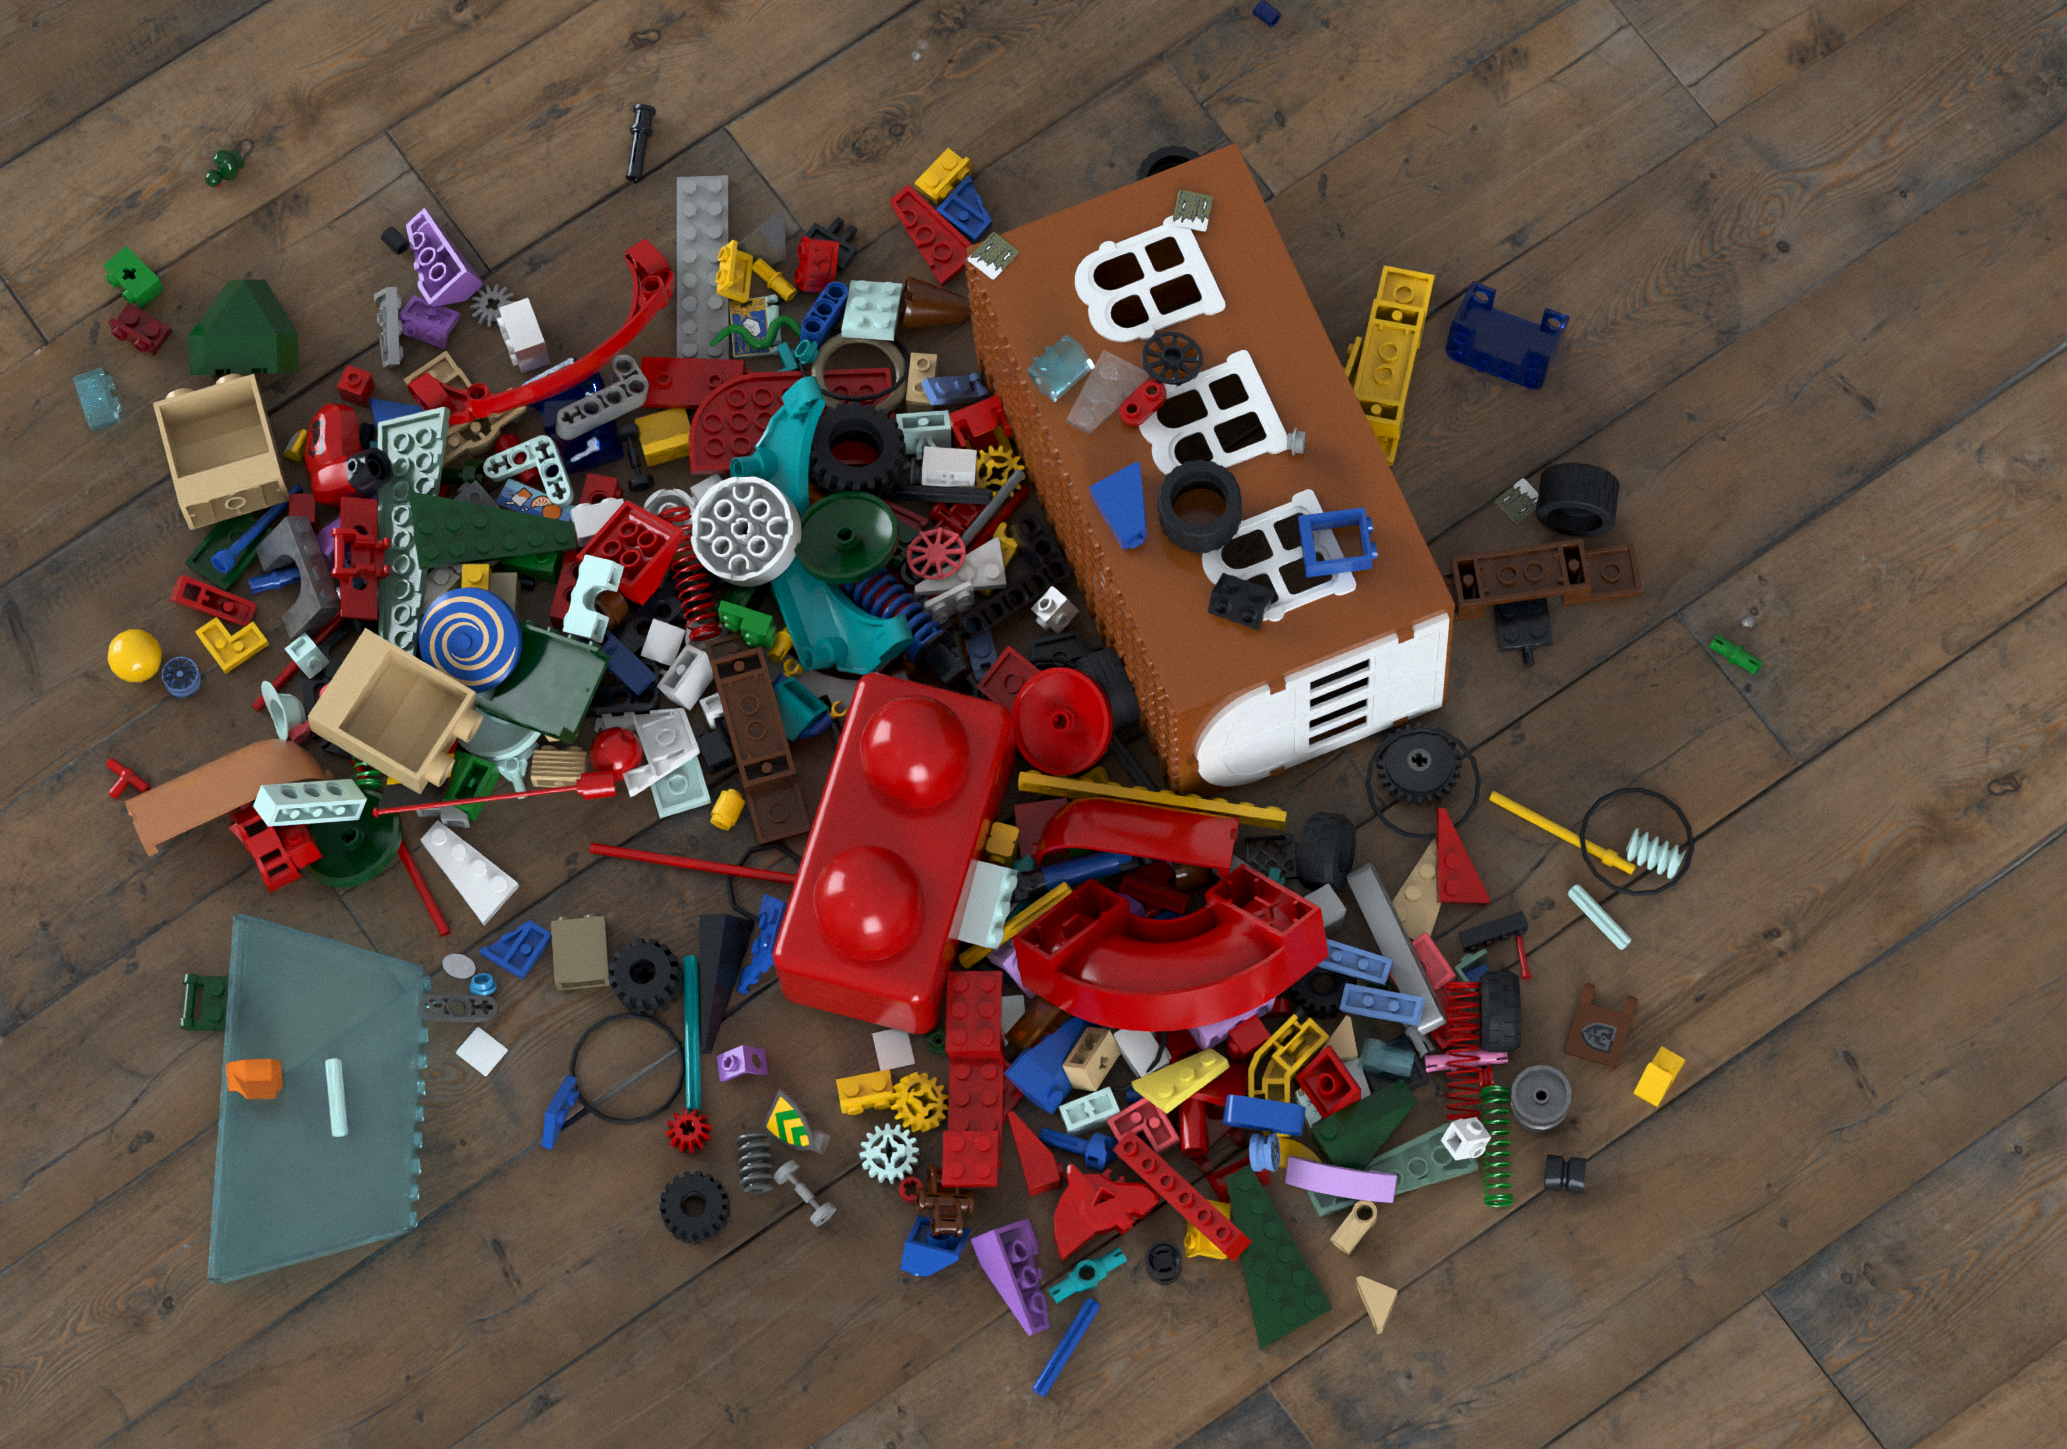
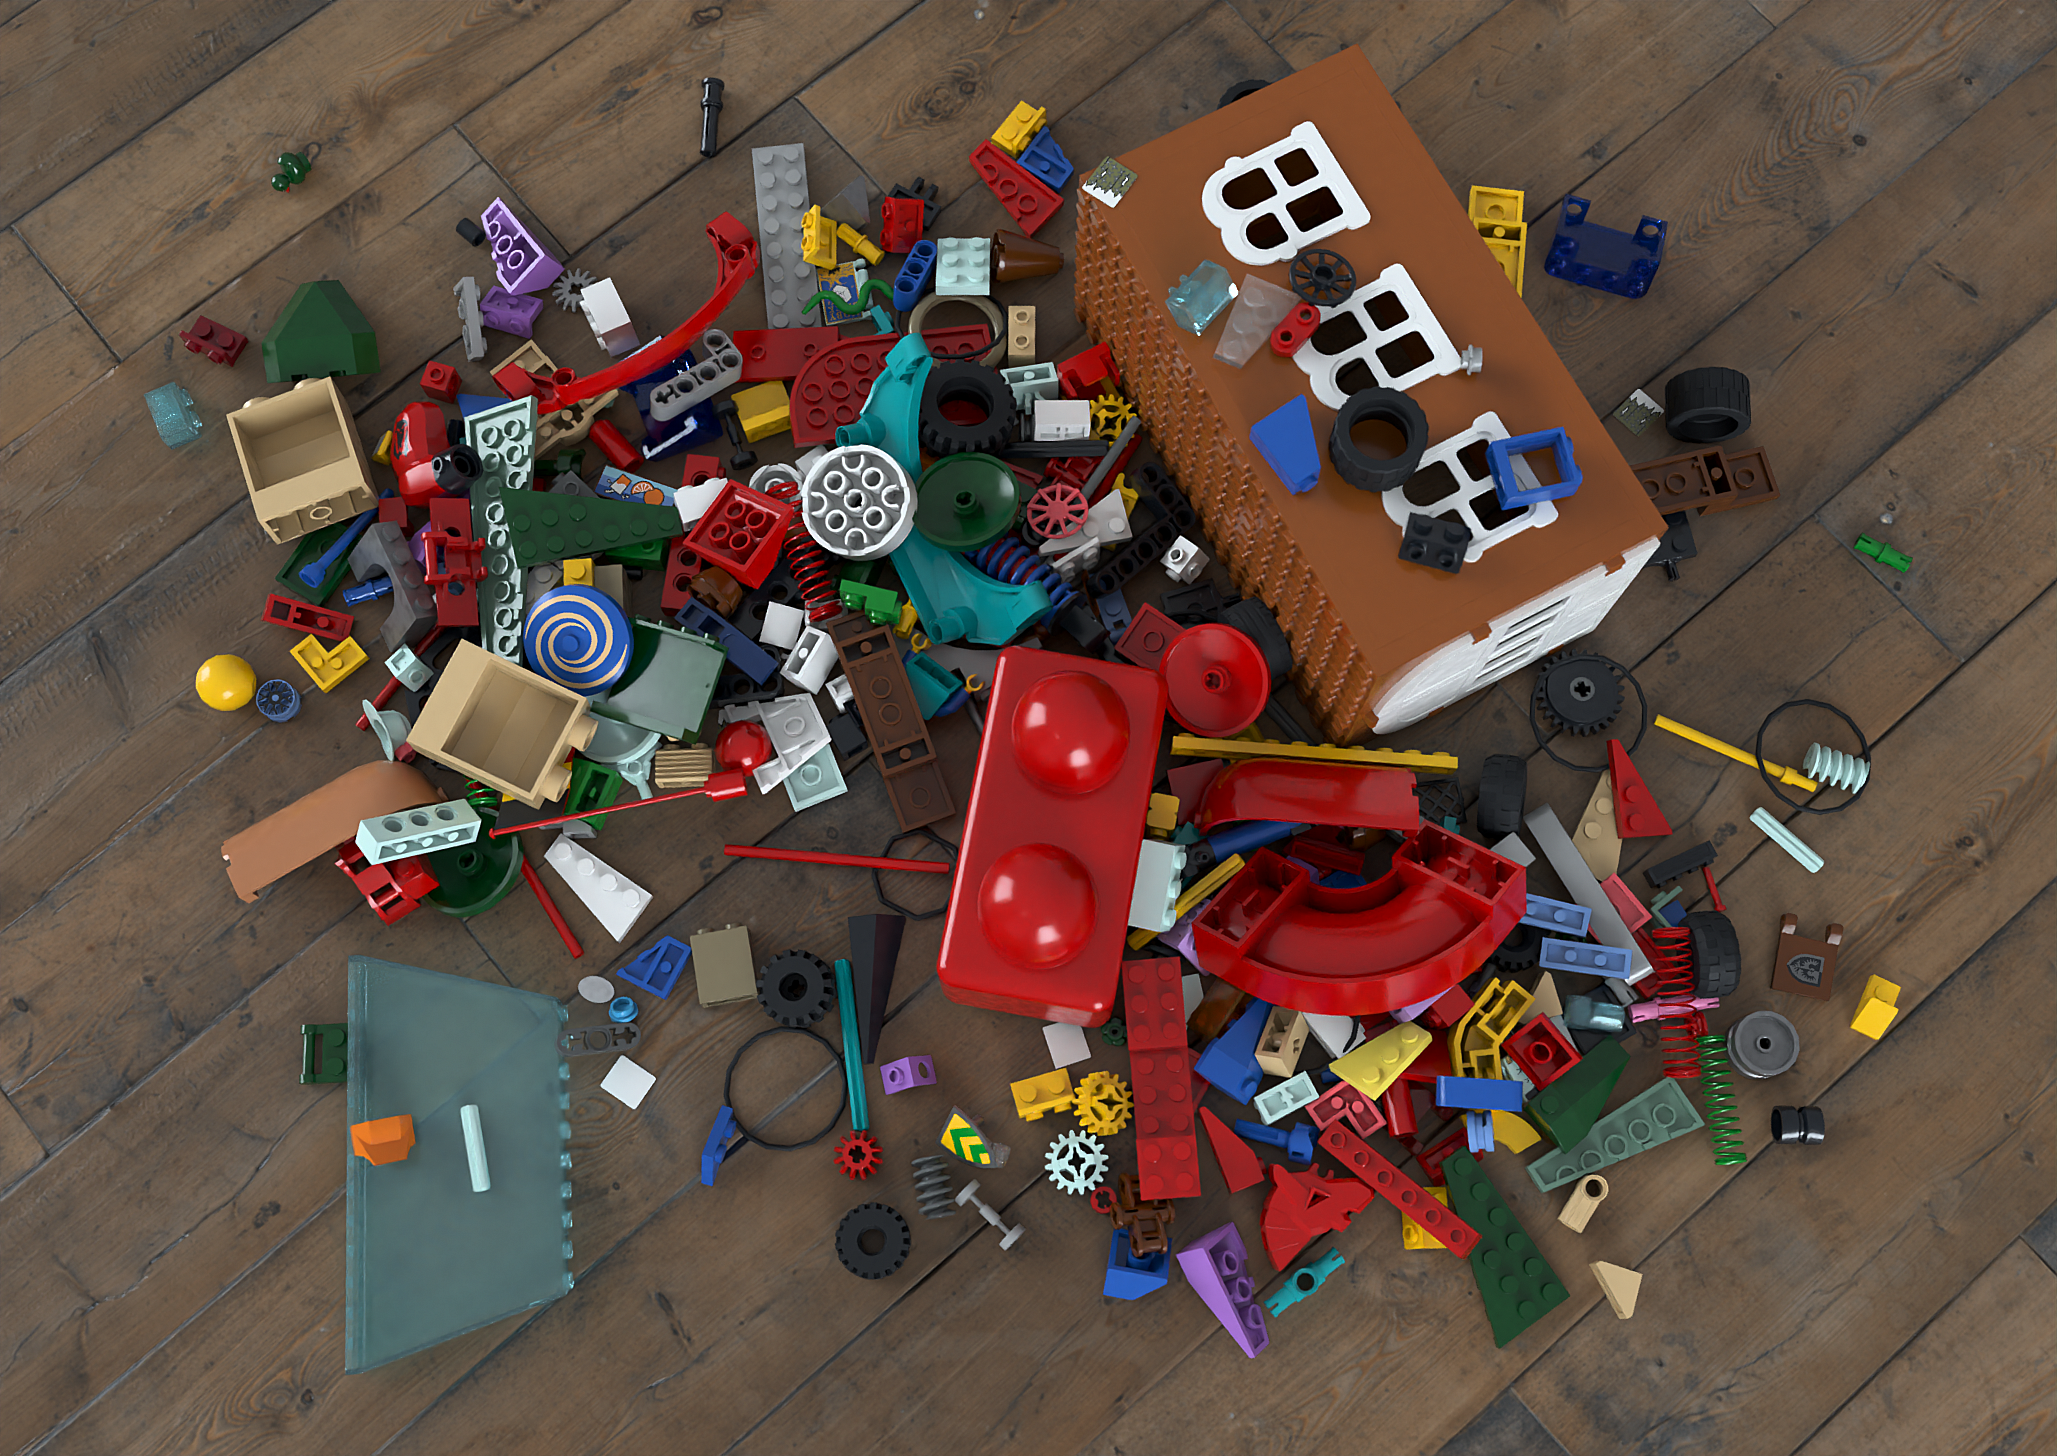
camera: 10 degrees left, 5 degrees up
(126, 776) = (228, 812): red piece -> none
(145, 283) = (204, 288): green brick -> none
(534, 459) = (631, 443): light aqua beam -> none
(594, 577) = (703, 564): light aqua arch -> none
(727, 809) = (865, 797): yellow brick -> none
(771, 915) = (925, 946): blue wing -> none
(807, 351) = (902, 312): teal plate -> none
(955, 389) = (1057, 340): medium blue plate -> none
(1066, 1347) = (1290, 1365): blue axle -> none
(1163, 1262) = (1386, 1262): black wheel -> none
(1192, 210) = (1321, 117): sticker -> none
(1340, 1180) = (1563, 1156): lavender slope -> none
(1466, 1138) = (1694, 1098): white brick -> none

